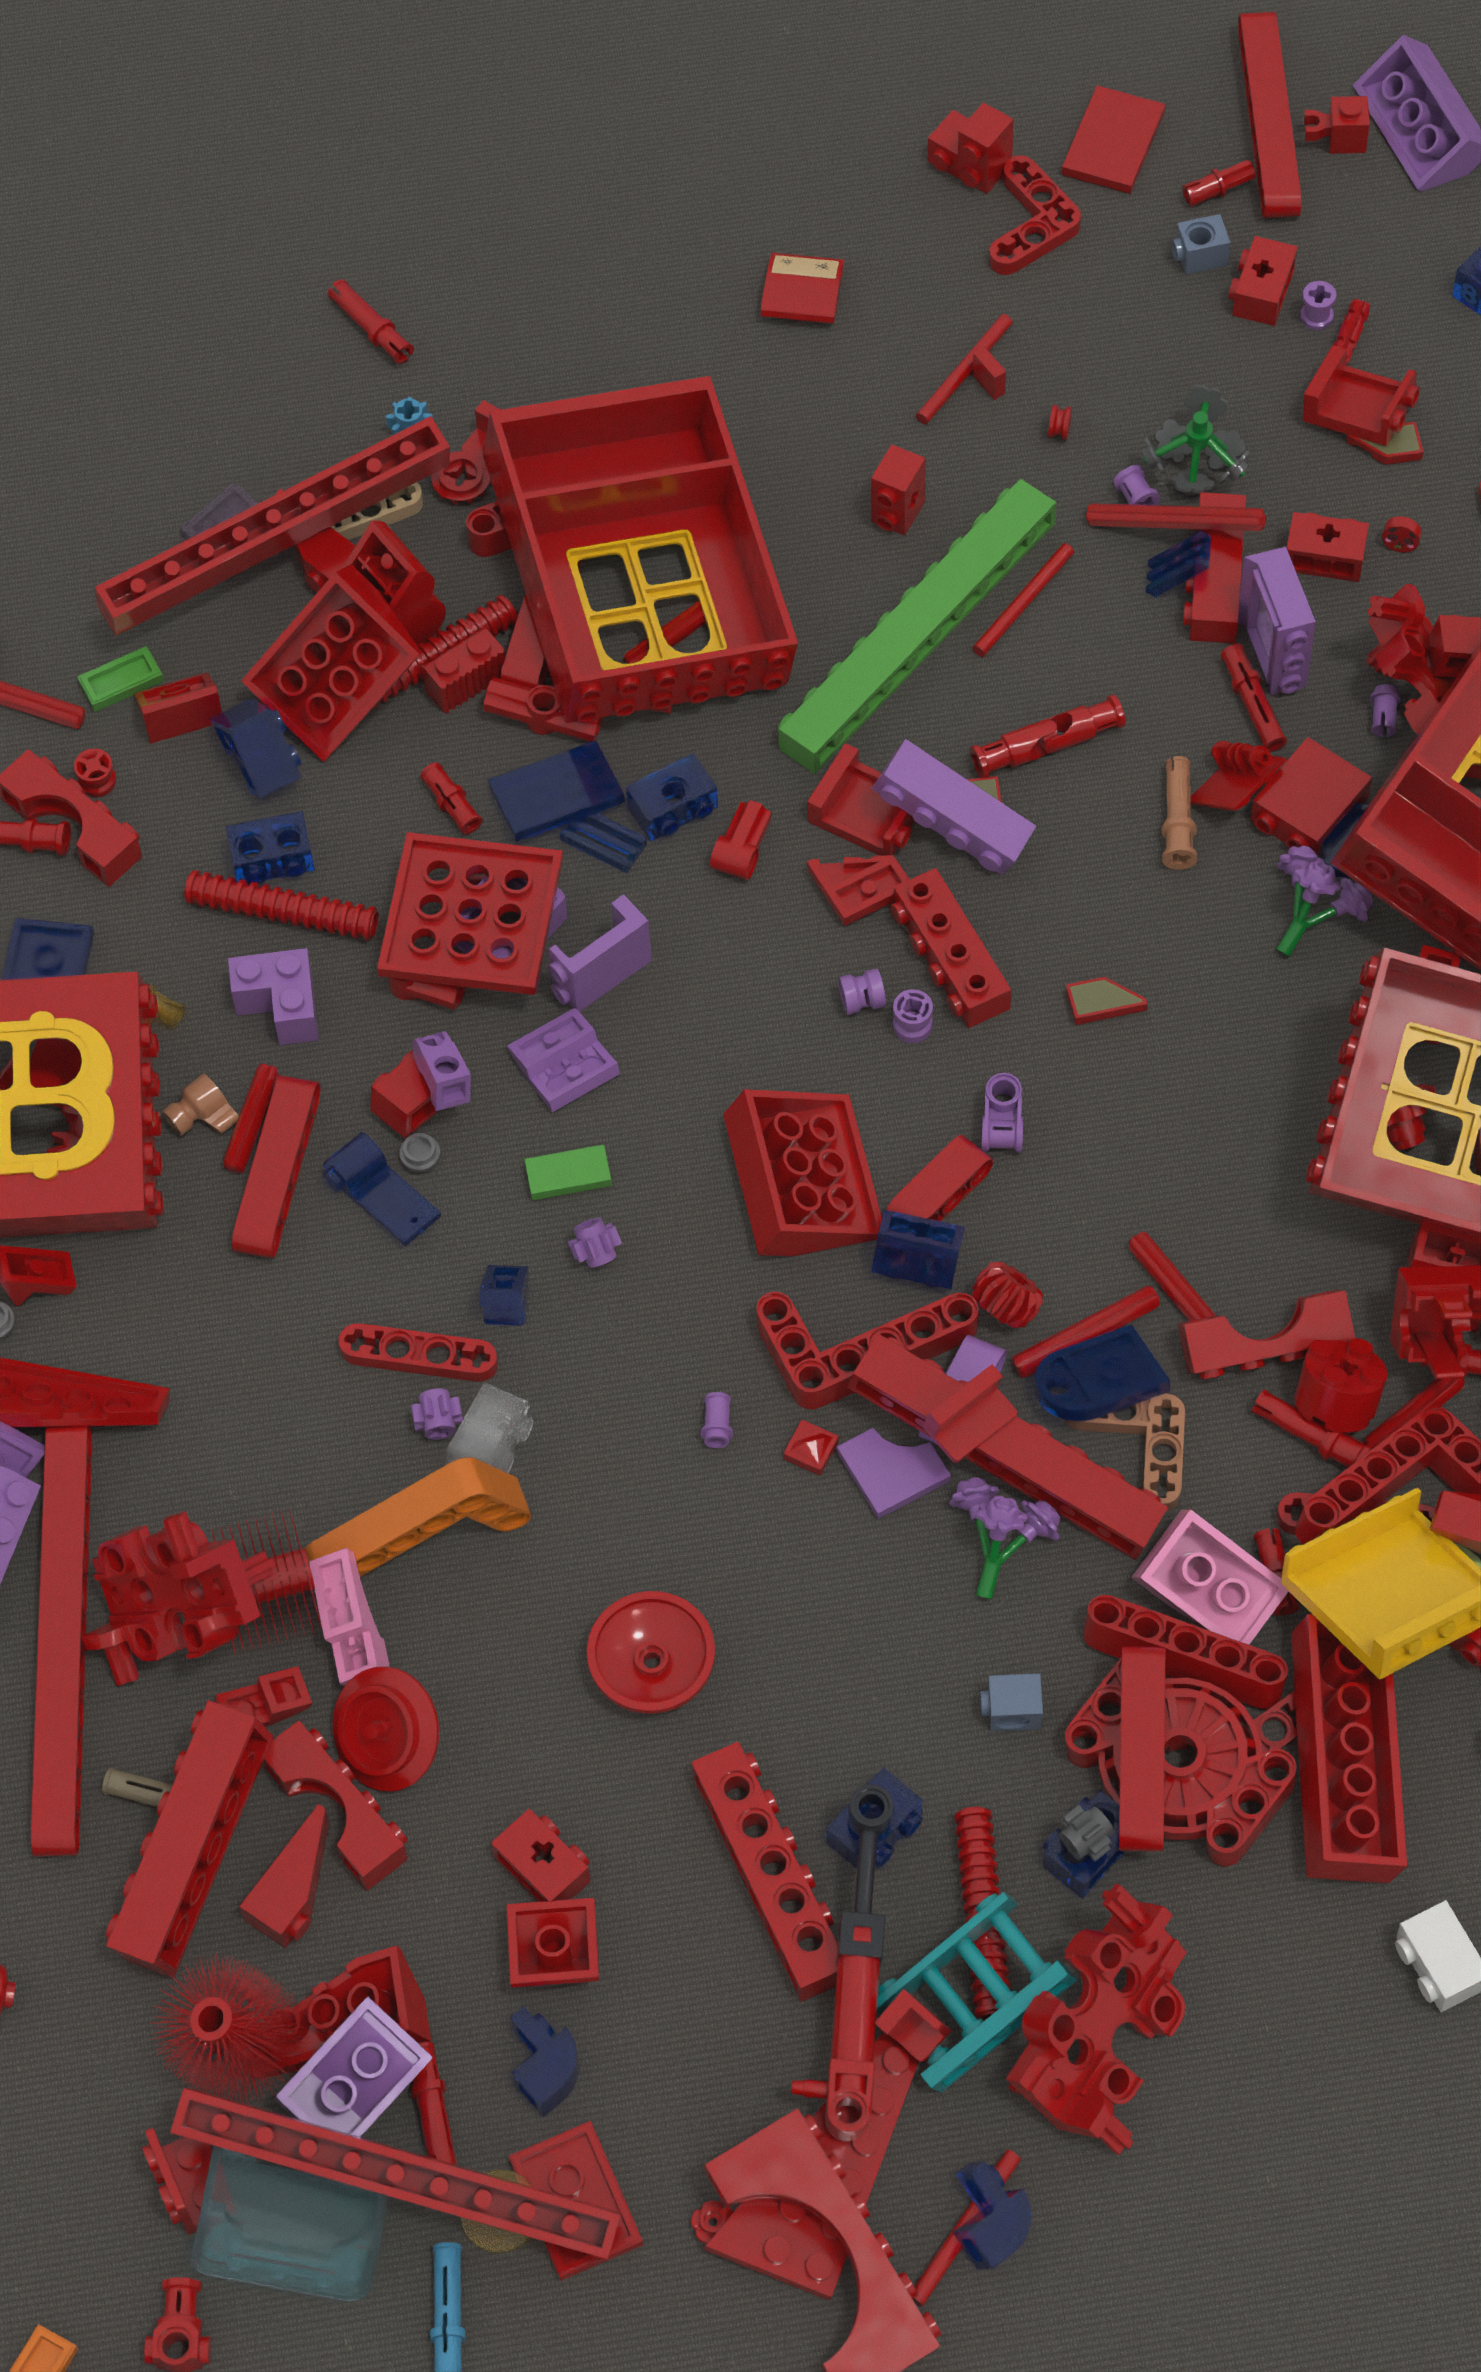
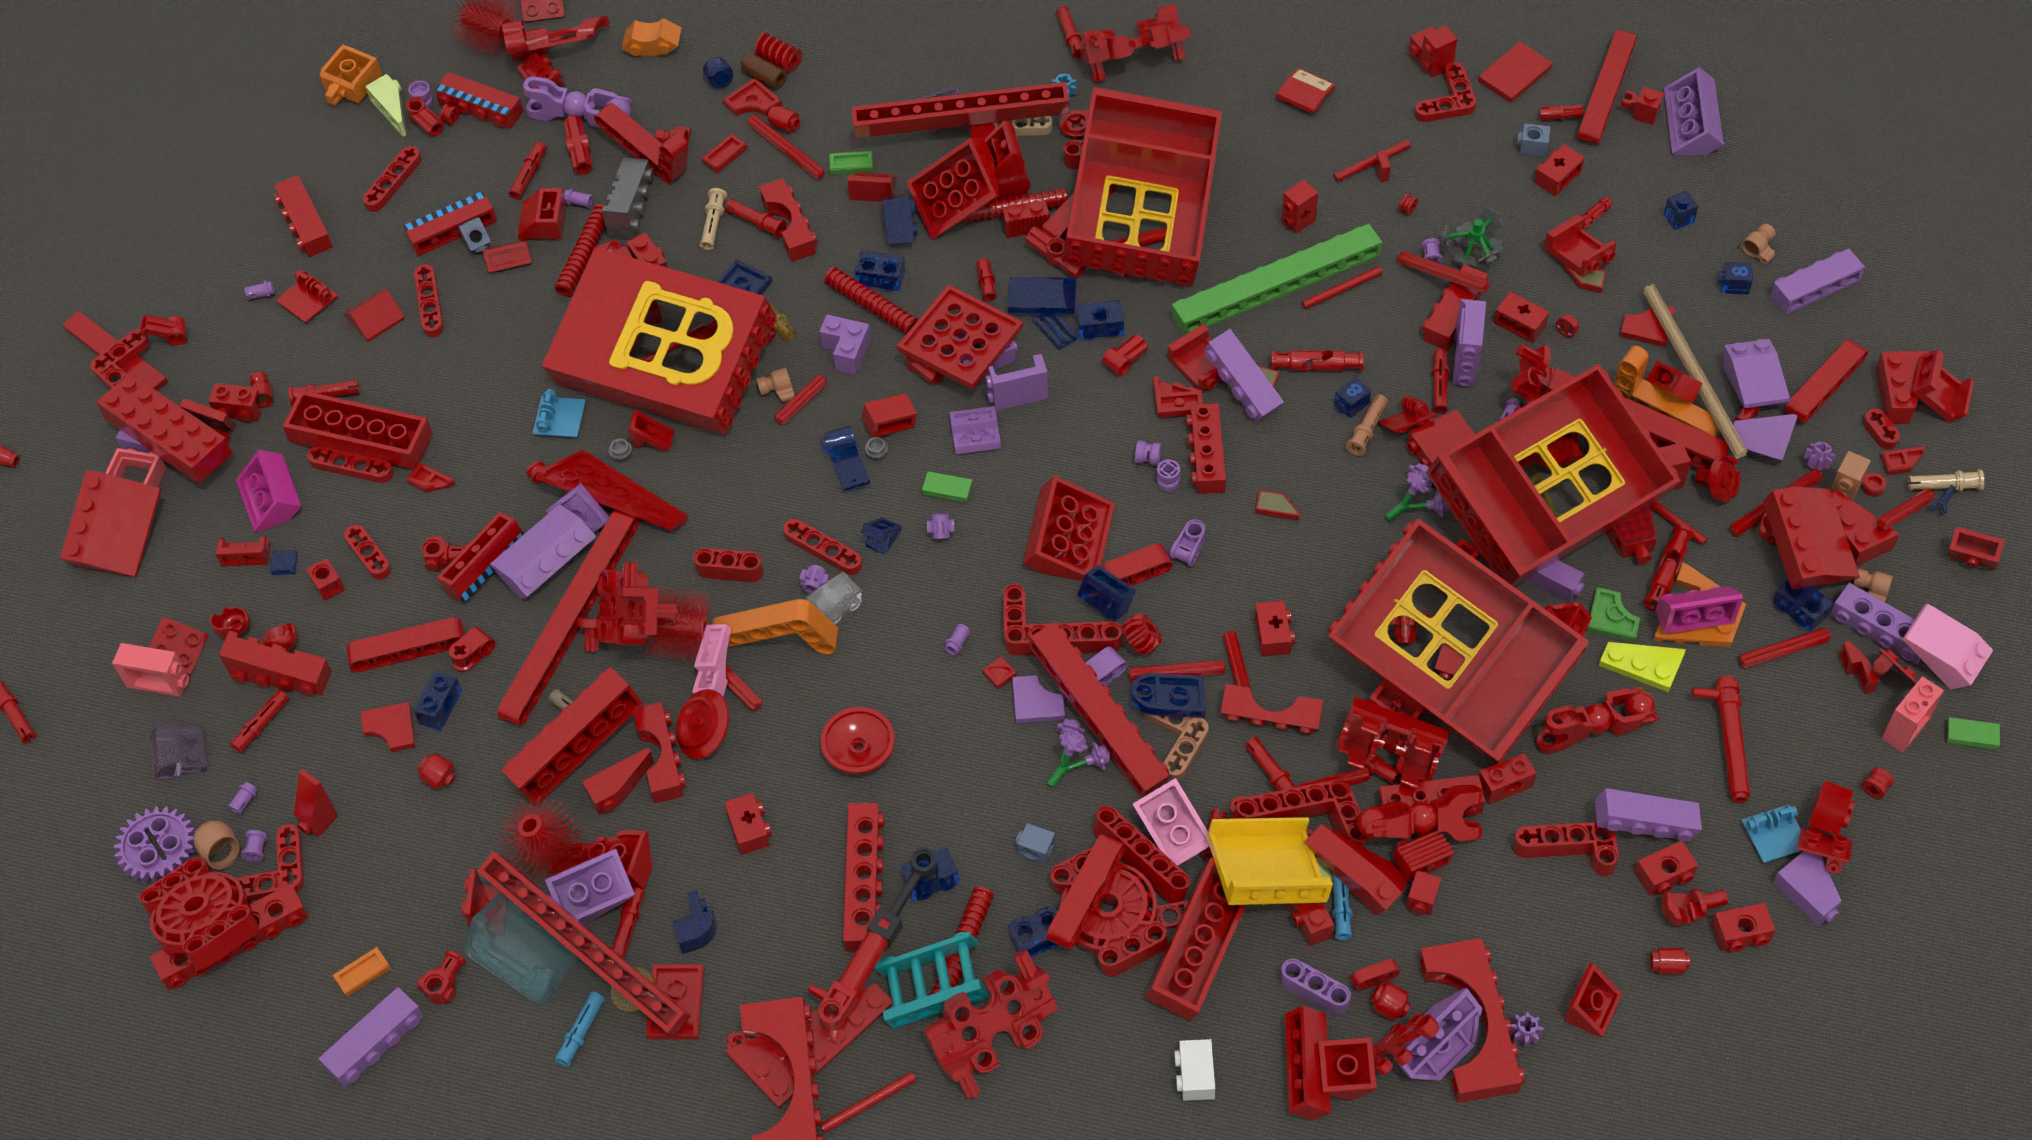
camera: 25 degrees right, 5 degrees down
(91, 763) = (816, 199): red wheel -> none
(271, 1698) = (656, 689): red slope -> none
(276, 1167) = (799, 427): red beam -> none
(294, 1429) = (719, 558): none -> red beam
(416, 1646) = (742, 690): none -> red axle
(442, 1070) = (903, 408): medium lavender leg -> none
(522, 274) = (1152, 32): none -> red gear
(552, 1942) = (730, 865): red slope -> none
(913, 2026) = (890, 982): red panel -> none
(970, 1415) = (1081, 682): red panel -> none
(1002, 2217) = (887, 1106): clear blue brick -> none
(1086, 1833) = (1032, 922): dark grey gear -> none
(1133, 777) = (1352, 397): none -> clear blue brick
(1179, 563) = (1433, 296): clear blue tile -> none
(1202, 1203) = (1273, 628): none -> red brick
(1318, 300) = (1583, 188): medium lavender bush -> none
(1341, 1384) = (1297, 749): red brick -> none

